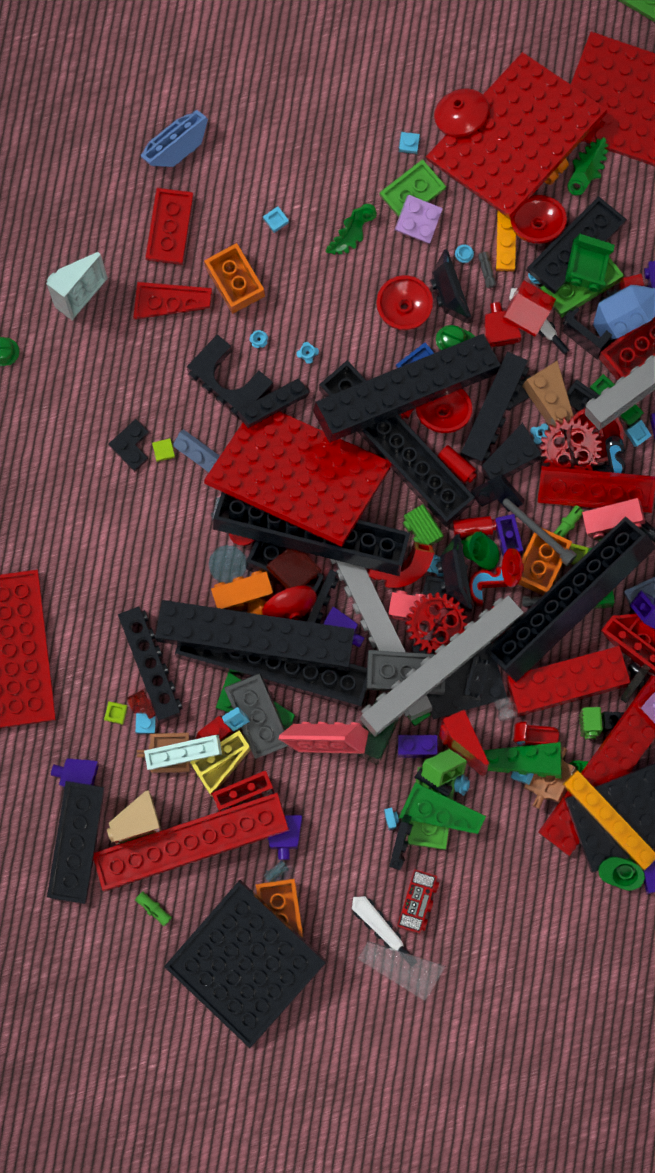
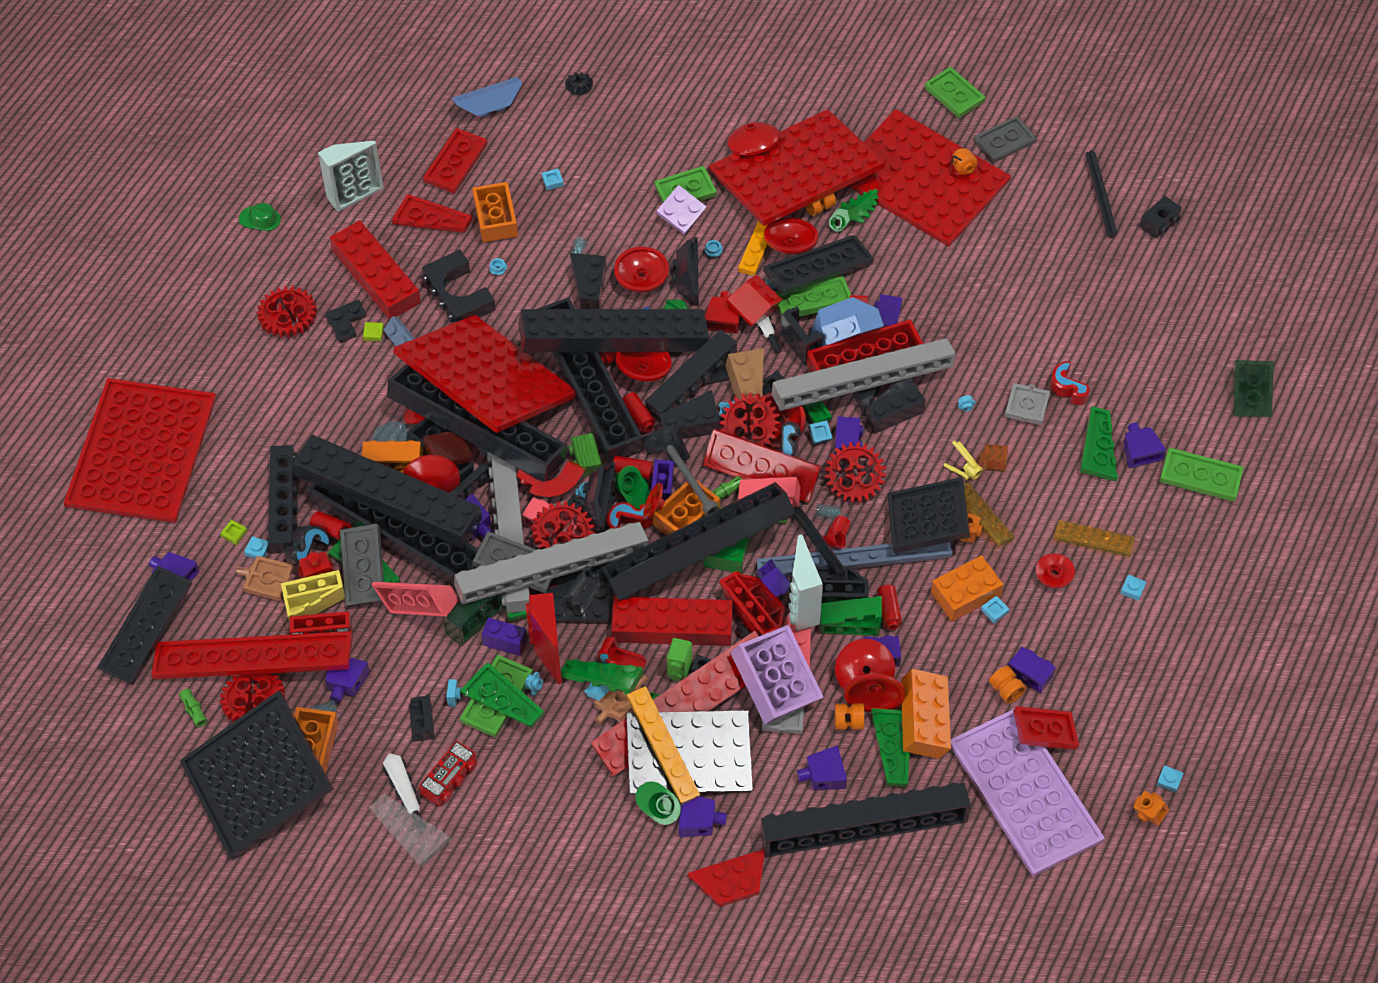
camera: 15 degrees right, 20 degrees down
(81, 442) = (294, 302): none -> red gear
(135, 821) = (208, 619): tan slope -> none
(139, 381) = (375, 270): none -> red brick
(140, 702) = (258, 527): clear red bracket -> none
(183, 752) = (277, 572): light aqua plate -> none
(189, 887) = (241, 693): none -> red gear
(191, 709) = (303, 541): none -> black animal
(208, 680) = (329, 523): none -> red brick
(235, 719) = (339, 558): medium azure plate -> none
(258, 101) = (575, 88): none -> black gear
(273, 403) = (485, 316): black plate -> none
(307, 357) = (537, 284): medium azure plate -> none
(331, 295) = (579, 245): none -> clear light blue pin
(353, 230) = (617, 203): green plant -> none
(356, 329) = (589, 278): none -> black wedge
(371, 853) = (421, 718): none -> black hinge
(400, 844) = (453, 713): black hinge -> none
(409, 143) = (697, 153): medium azure plate -> none
(443, 767) = (520, 656): bright green brick -> none
(444, 789) = (505, 669): black axle -> none
(487, 269) = (729, 267): dark grey axle -> none
(505, 709) = (602, 628): clear wheel -> none
(588, 263) = (823, 276): green panel -> none
(635, 683) = (740, 631): clear smoke tile -> none

